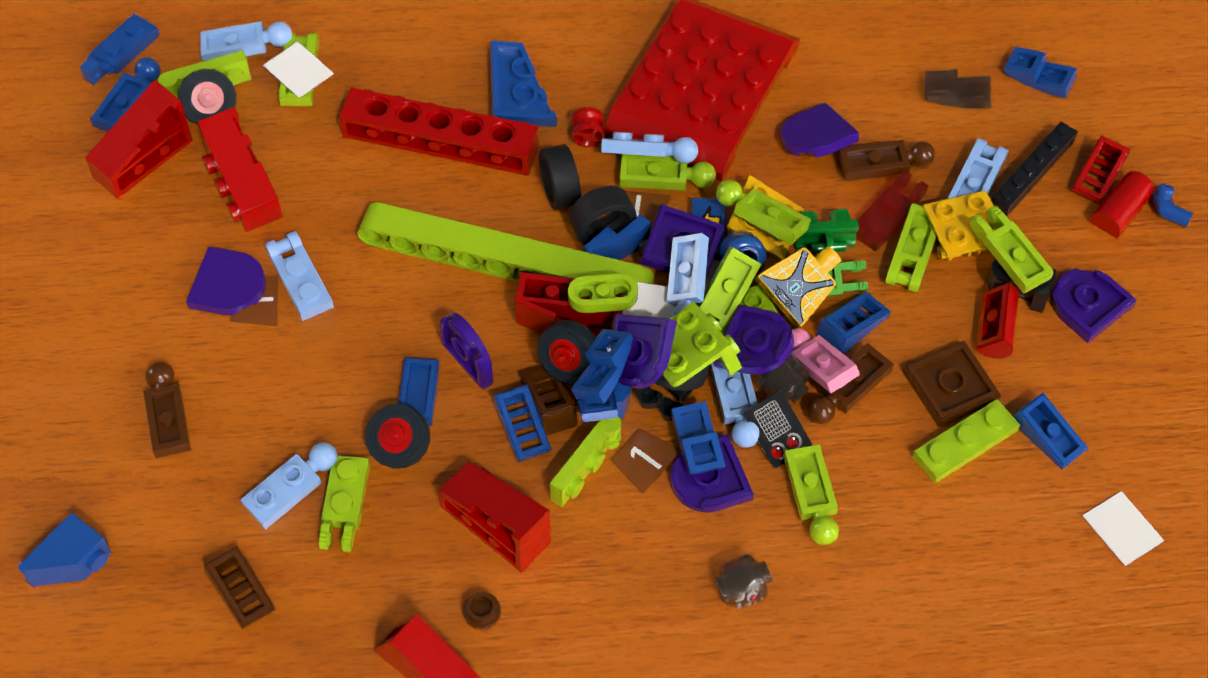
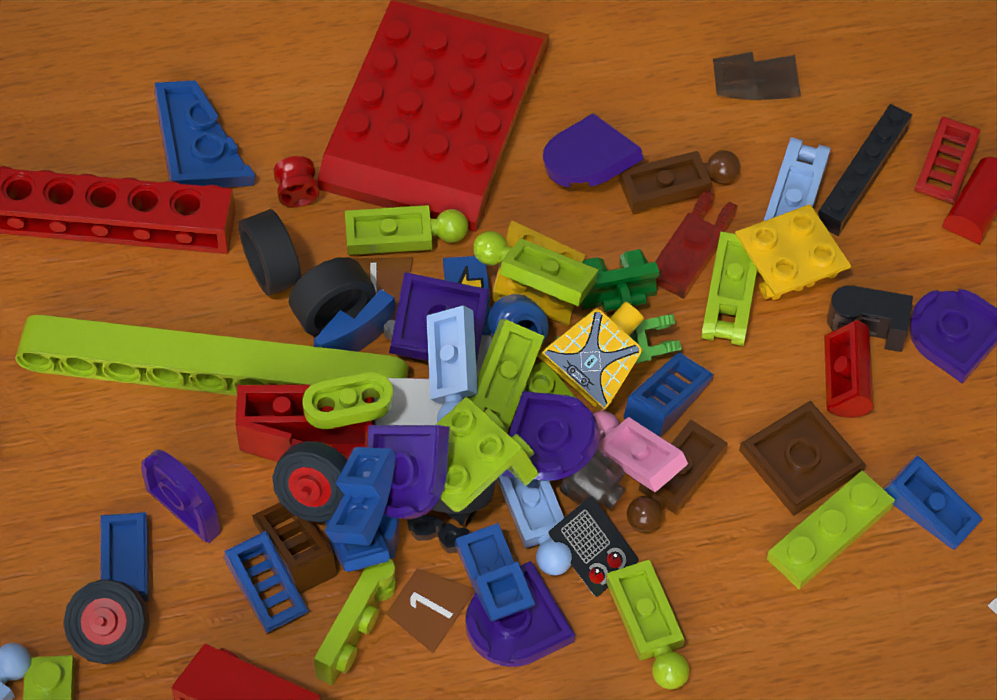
camera: 10 degrees left, 0 degrees up
(683, 149) = (423, 198): light blue plate -> none
(1012, 249) = (854, 277): lime hinge -> none
(1032, 70) = (844, 41): blue slope -> none

